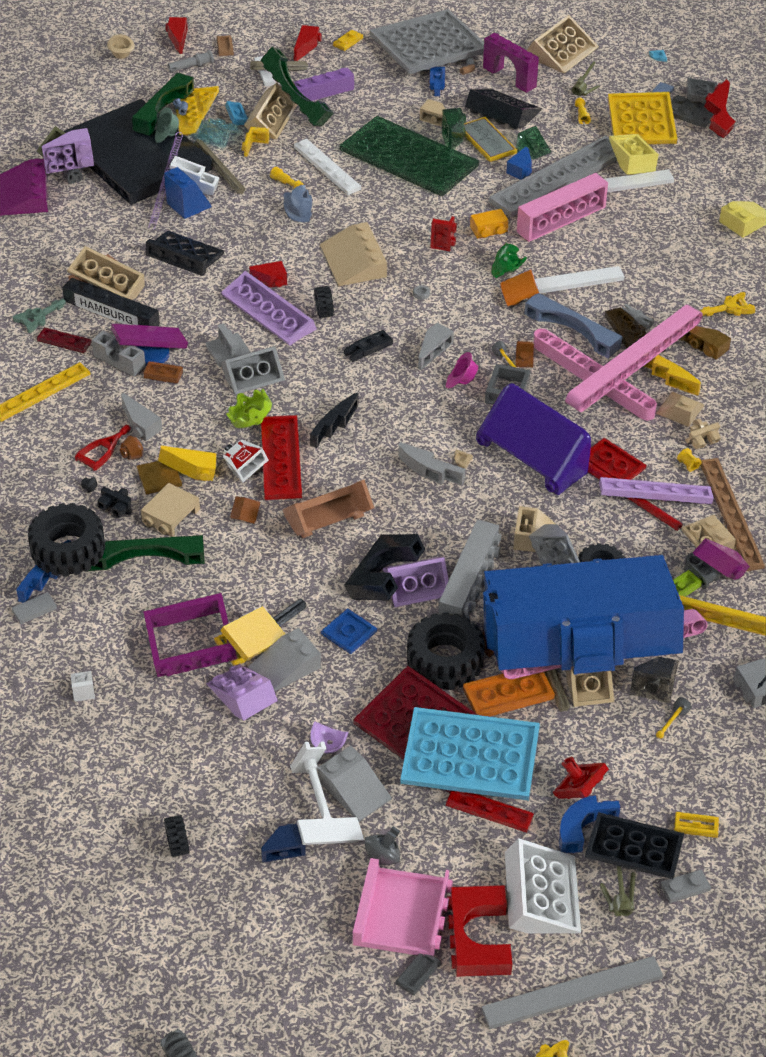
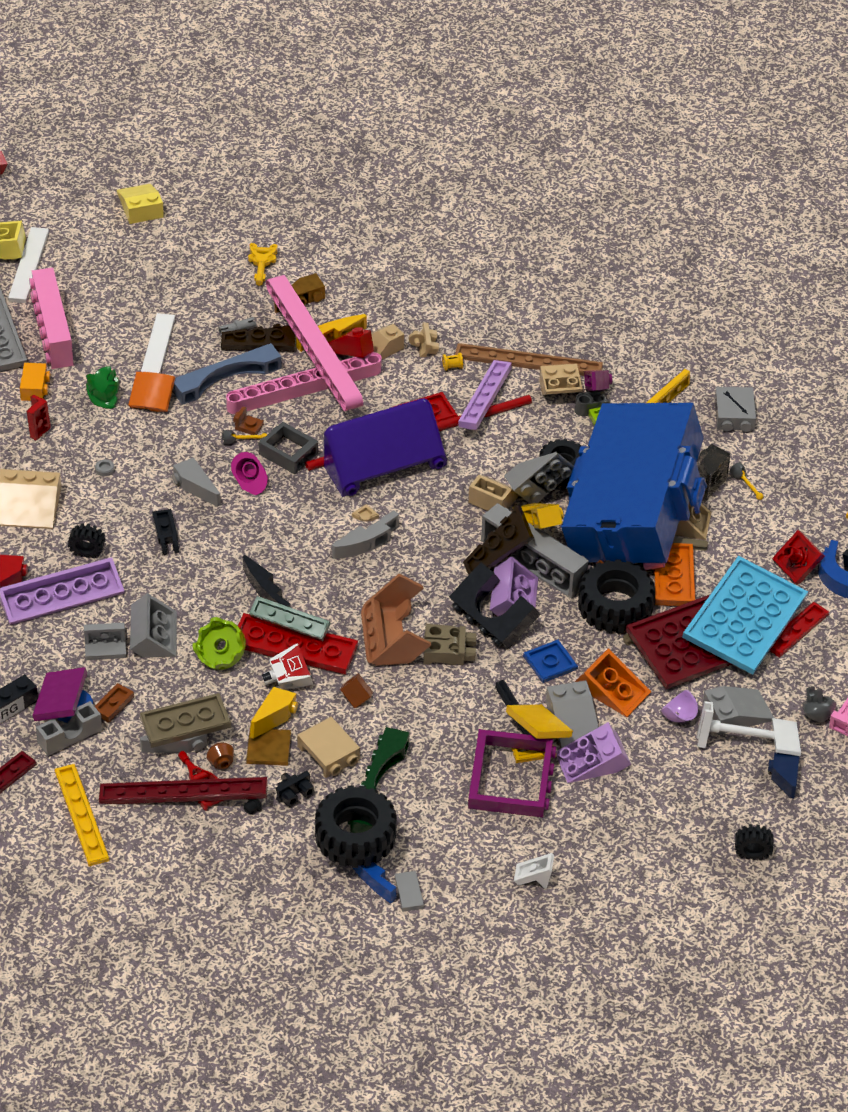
camera: 70 degrees left, 0 degrees up
(83, 438) = (183, 790): none -> dark red tile
(151, 411) = (185, 720): none -> dark tan tile
(299, 441) = (289, 618): none -> sand green tile
(327, 553) = (449, 645): none -> dark tan hips
(337, 680) = (614, 683): none -> orange slope
(454, 544) = (502, 542): none -> dark brown wing
(495, 558) = (543, 514): none -> yellow arch
(653, 384) = (354, 343): none -> red slope

